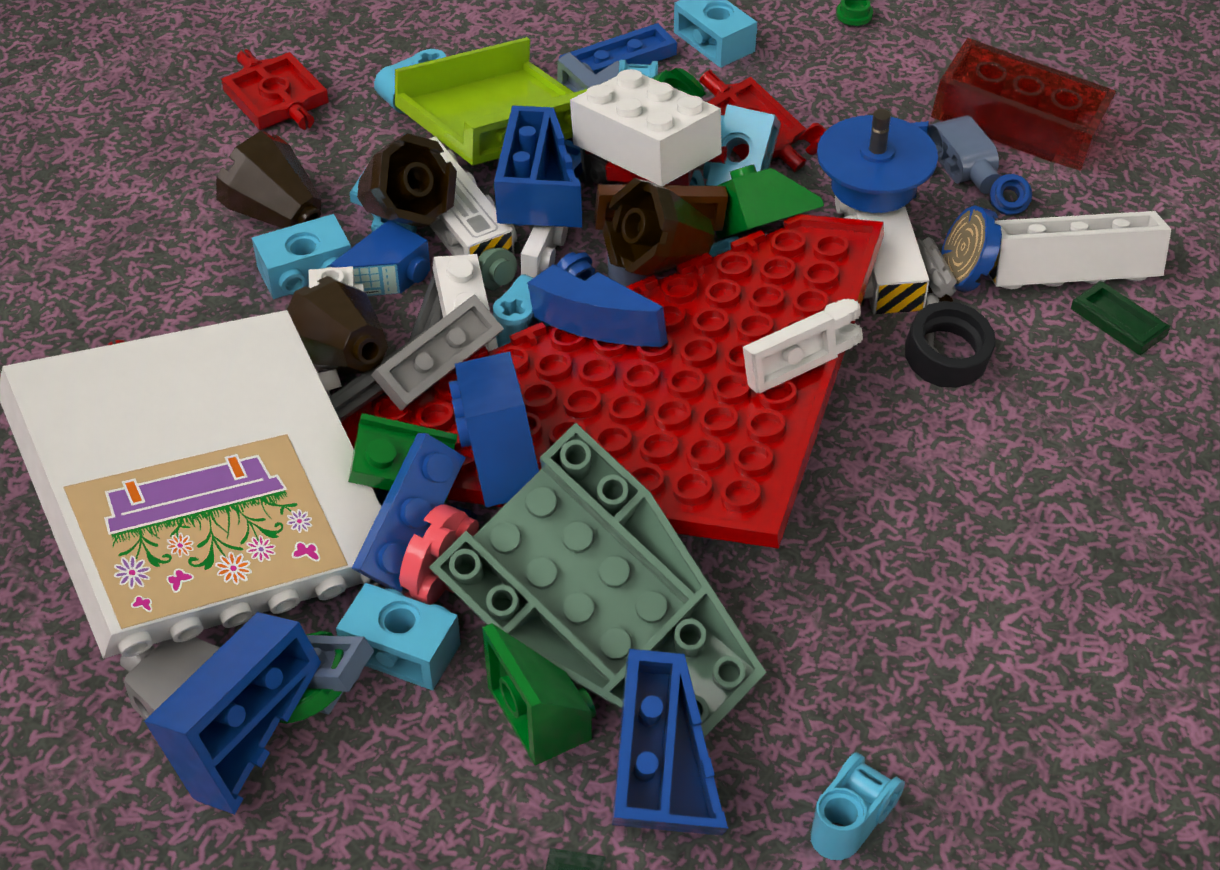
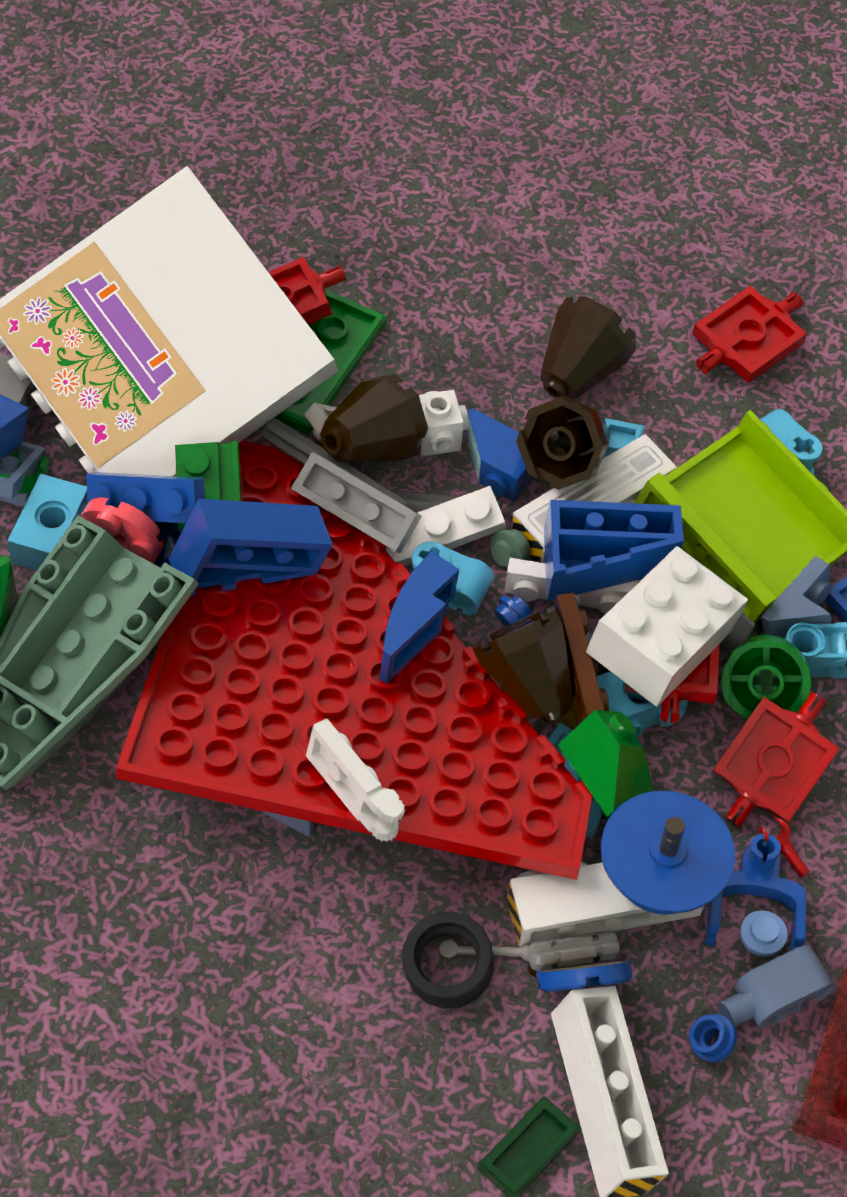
camera: 80 degrees right, 10 degrees up
(290, 252) = (496, 387): medium azure brick -> none
(744, 127) = (702, 746): medium azure brick -> none

